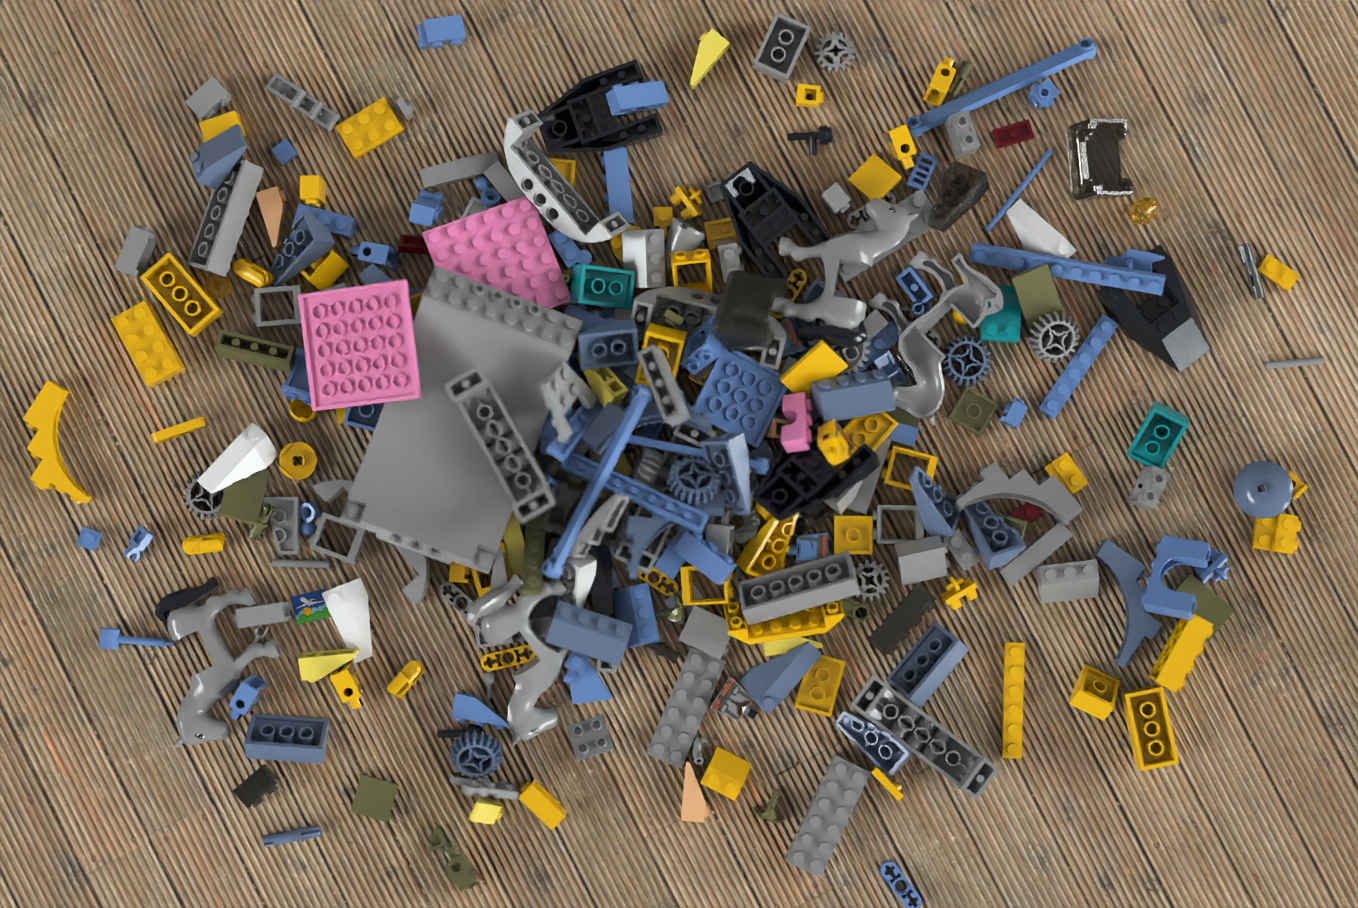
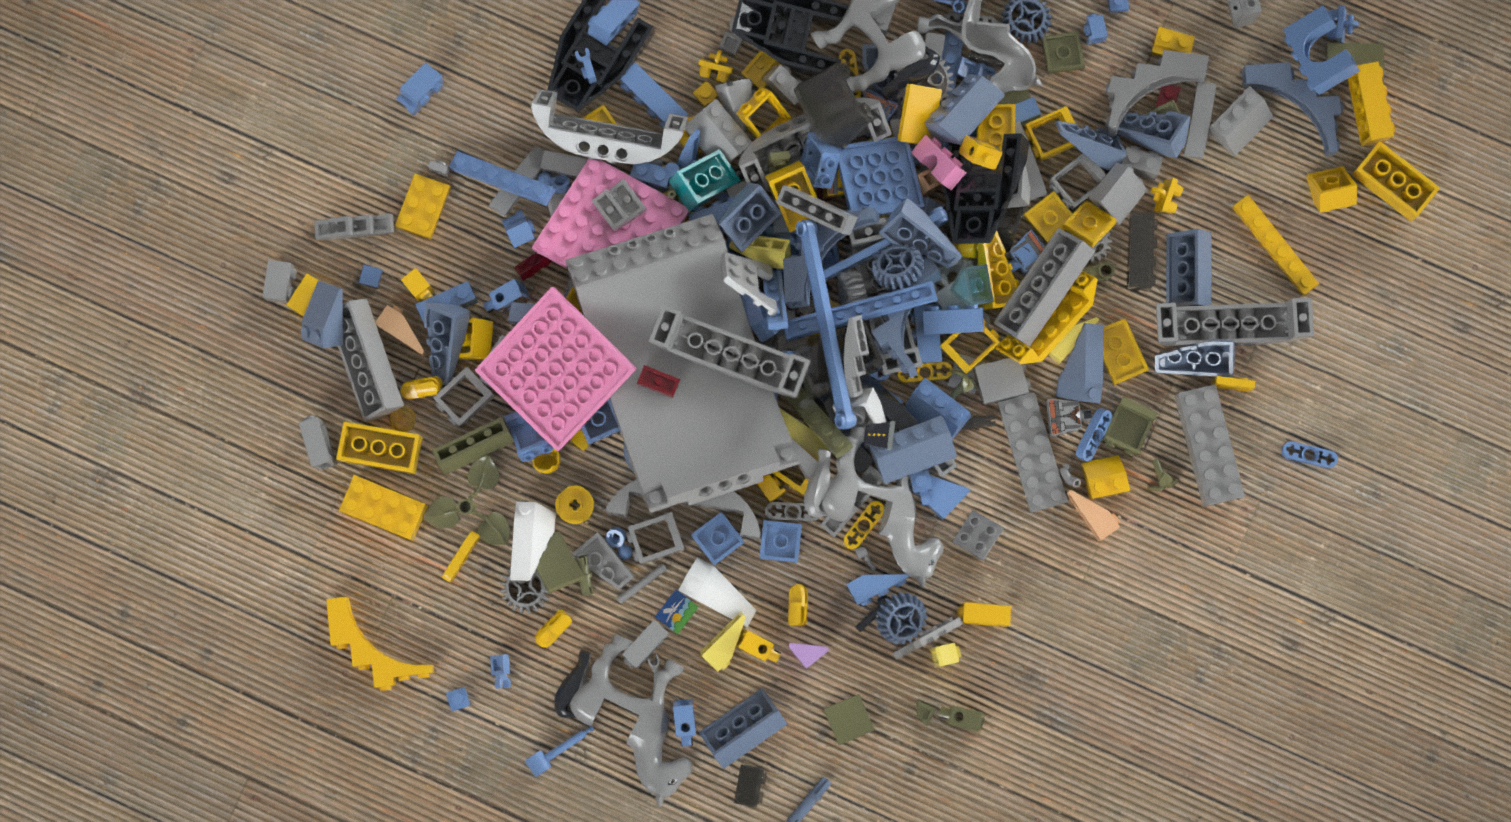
camera: 35 degrees left, 5 degrees down
(194, 388) = (443, 510): none -> olive plant
(381, 723) = (807, 653): none -> lavender slope
(386, 576) = (717, 538): none -> medium blue plate
(431, 420) = (658, 381): none -> dark red plate
(433, 618) = (780, 541): none -> medium blue plate
(446, 157) = (502, 178): none -> medium blue plate
(517, 253) = (619, 205): none -> light grey slope
(571, 601) = (880, 435): none -> black sticker
(581, 124) = (587, 70): none -> medium blue plate
(611, 254) = (690, 150): none -> medium blue slope
(741, 543) = (973, 285): none -> clear light blue slope
(760, 725) = (1087, 445): none -> medium blue beam
(776, 749) = (1129, 427): none -> olive panel
(878, 565) = (1089, 223): none -> yellow tile

